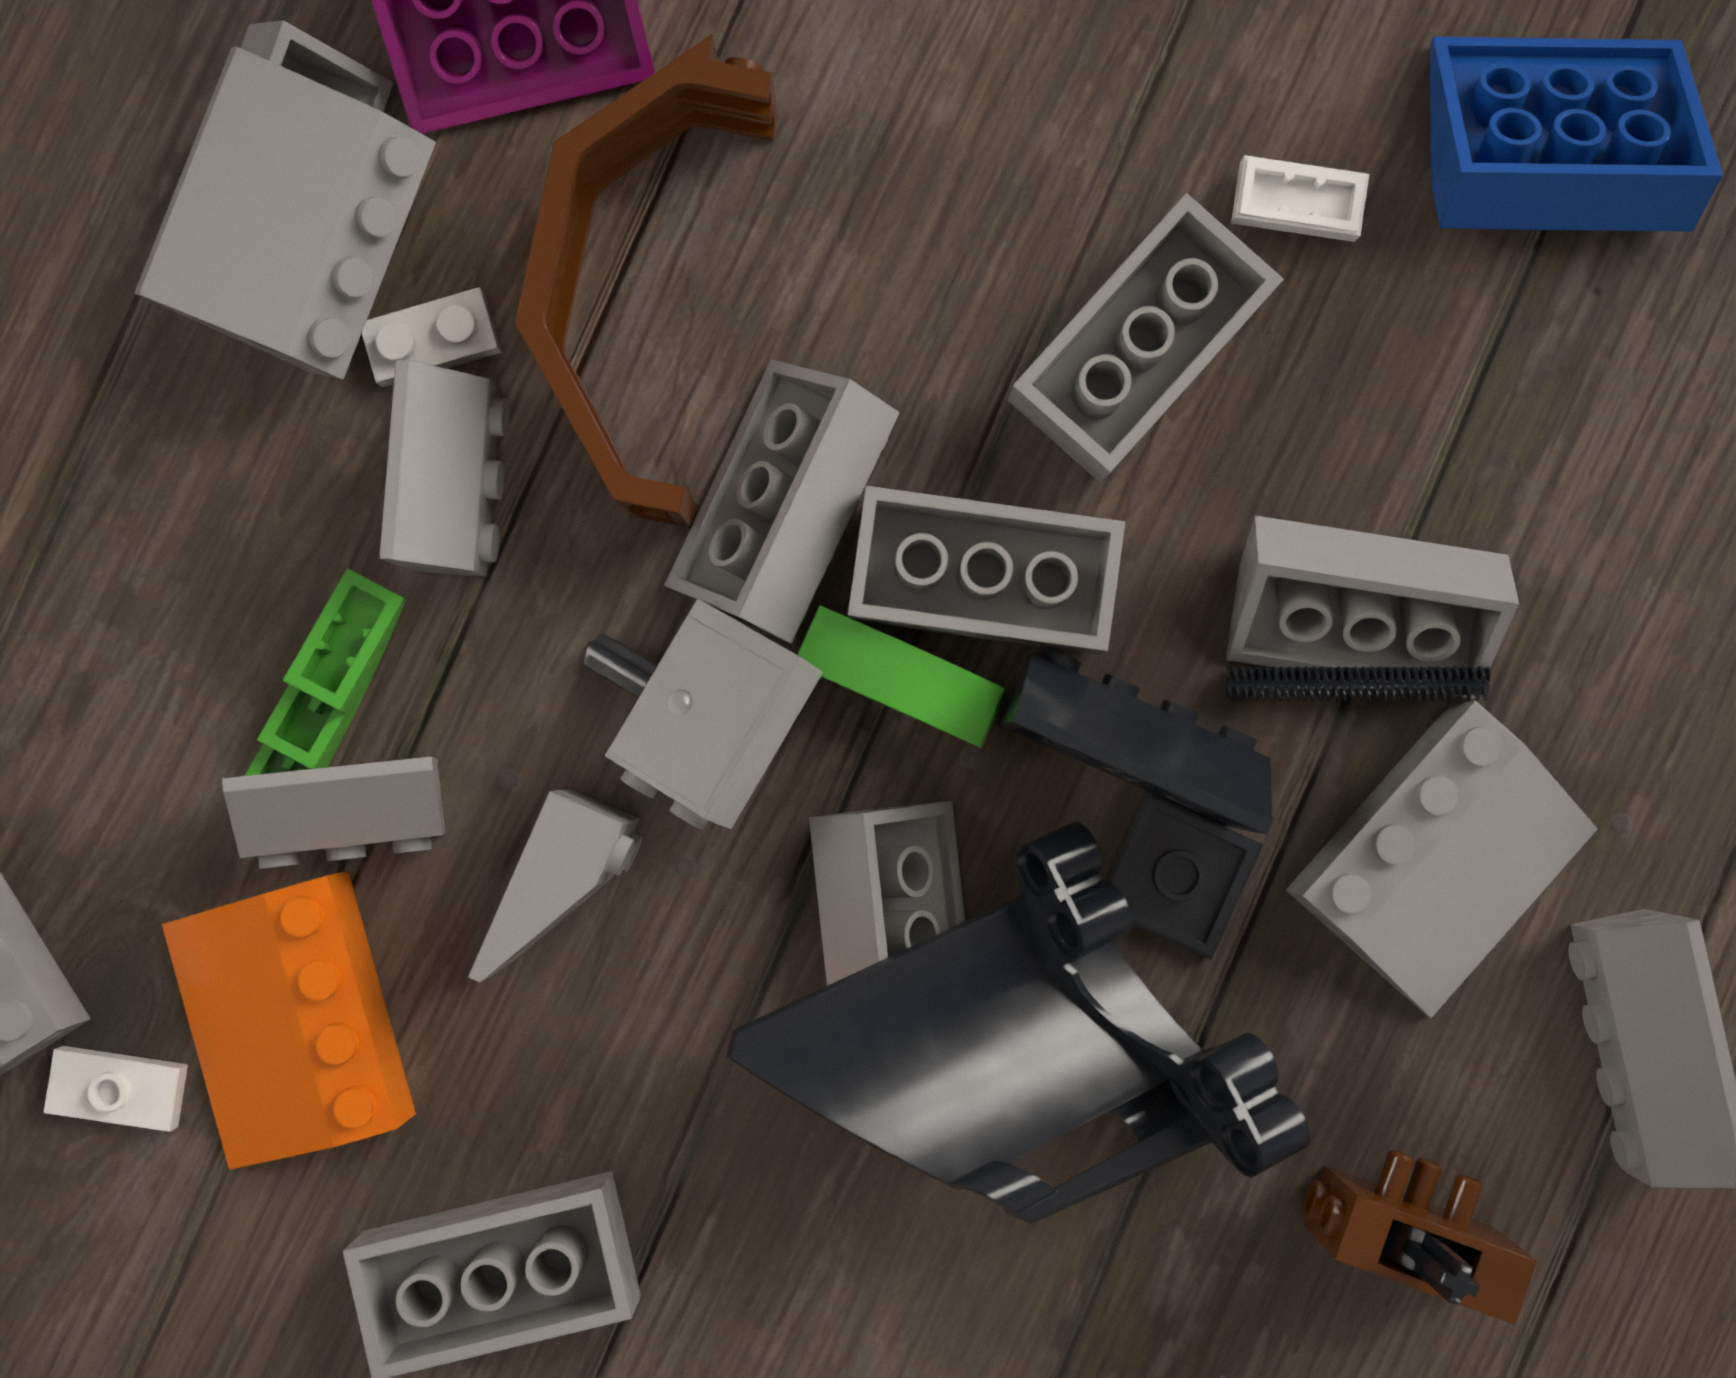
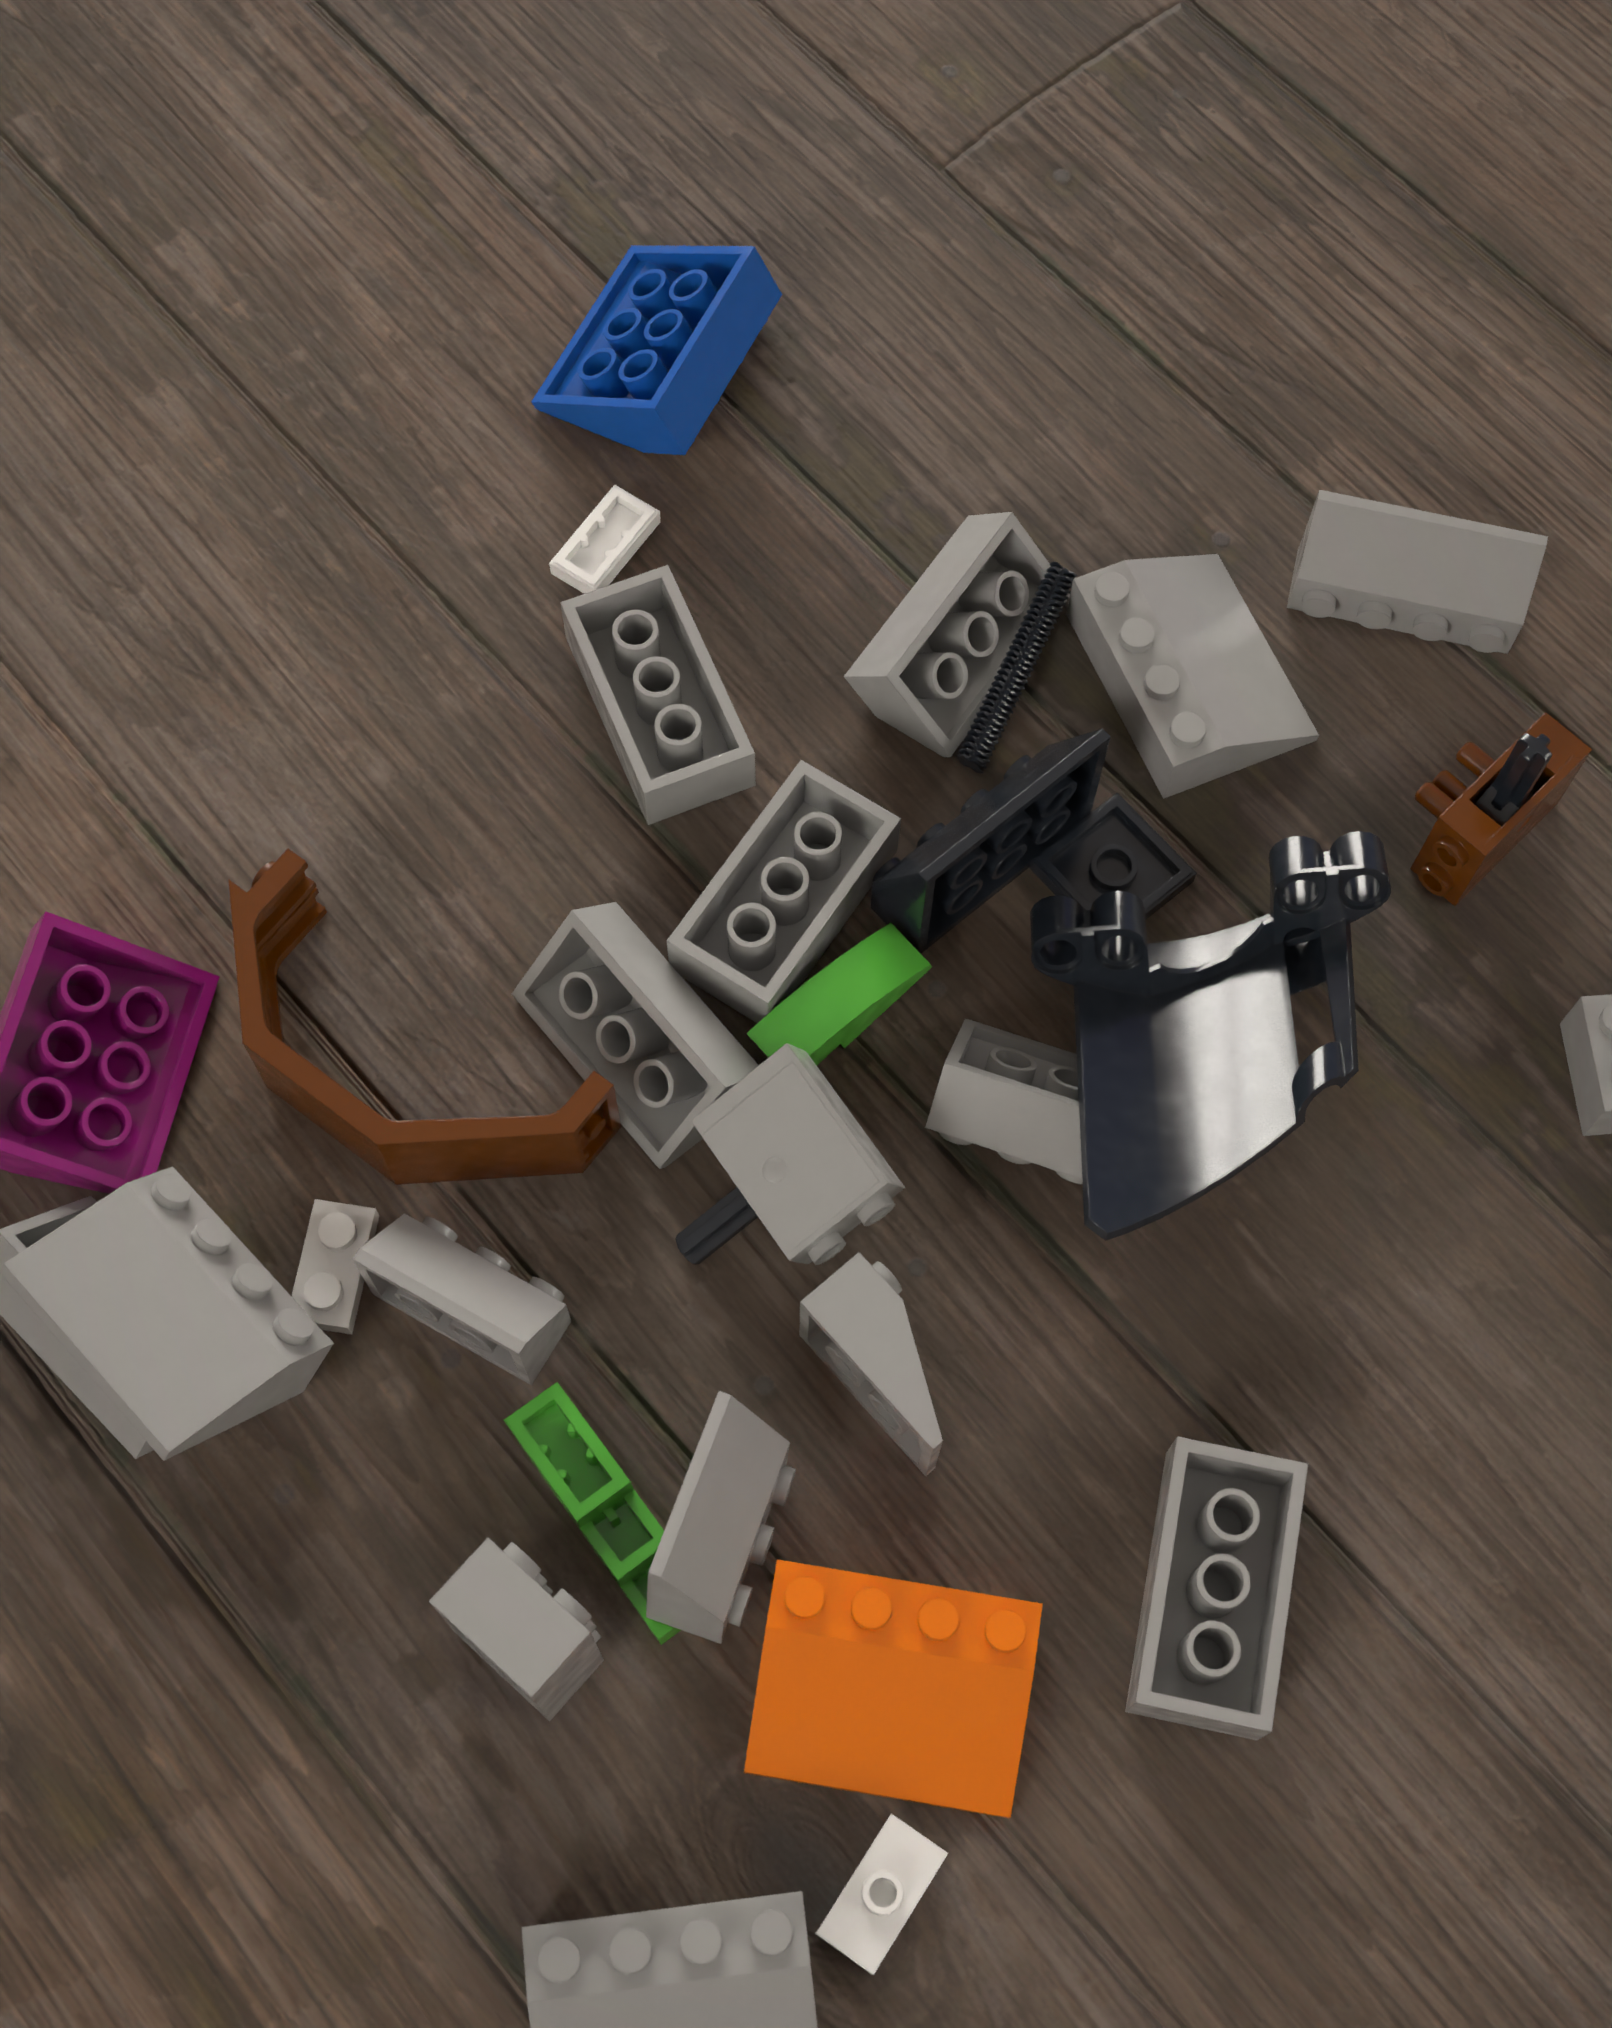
camera: 65 degrees left, 20 degrees down
(146, 684) = (514, 1624): none -> light grey brick

